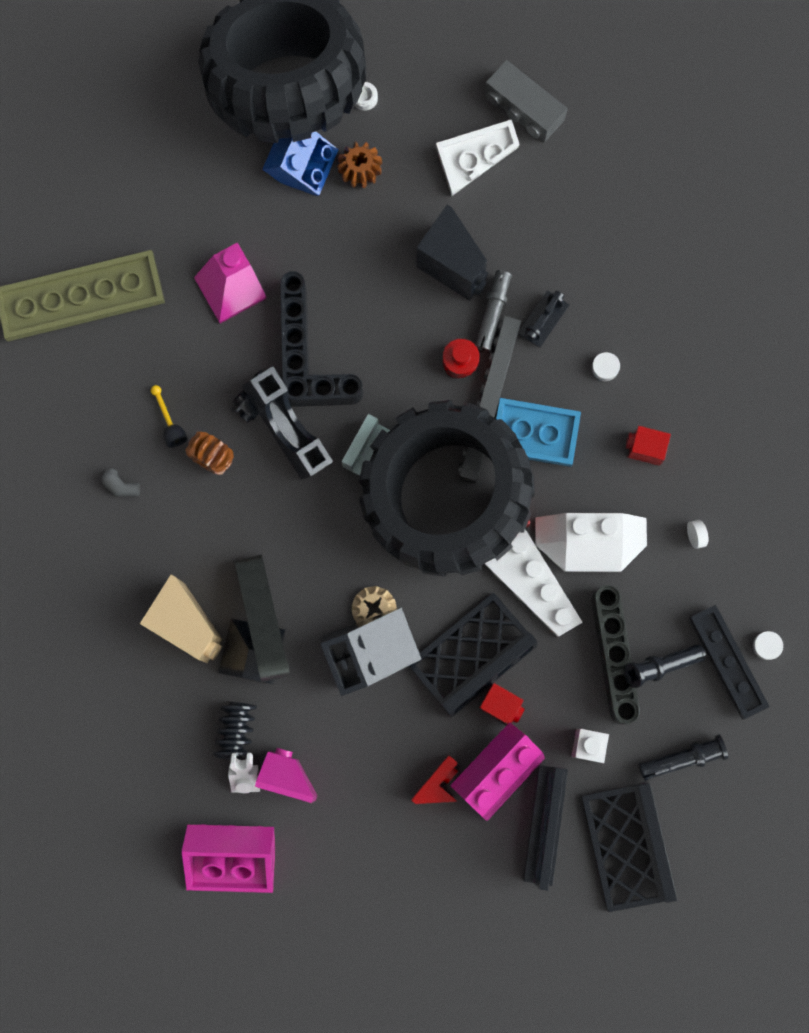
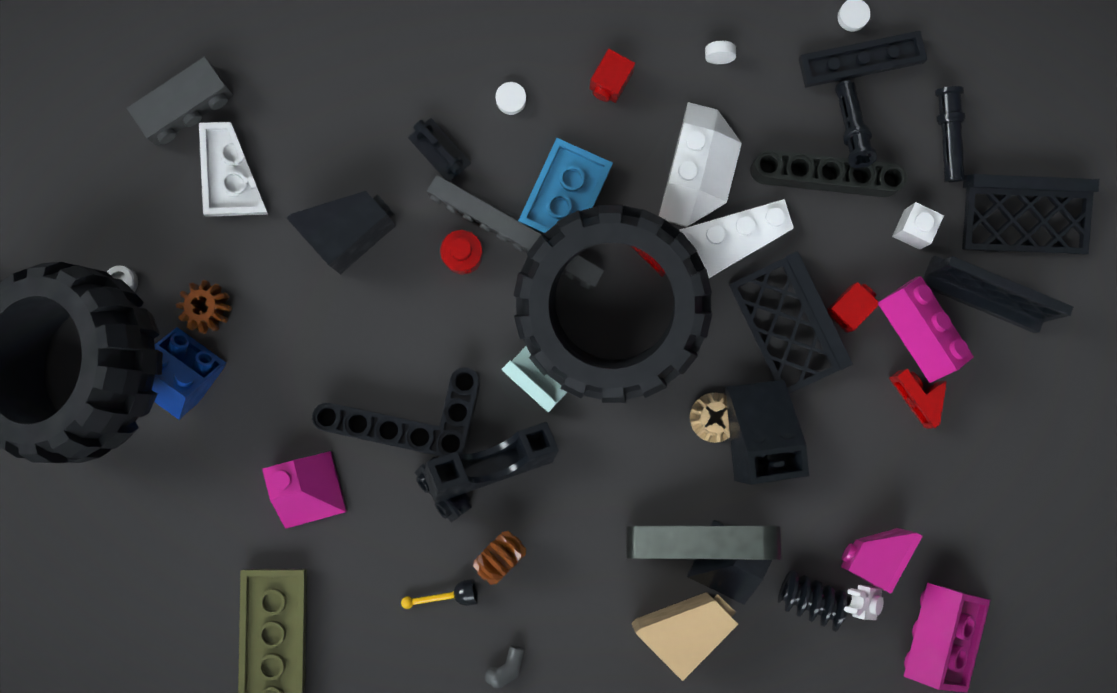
camera: 80 degrees left, 5 degrees up
(491, 317) = (416, 202): dark grey pin -> none

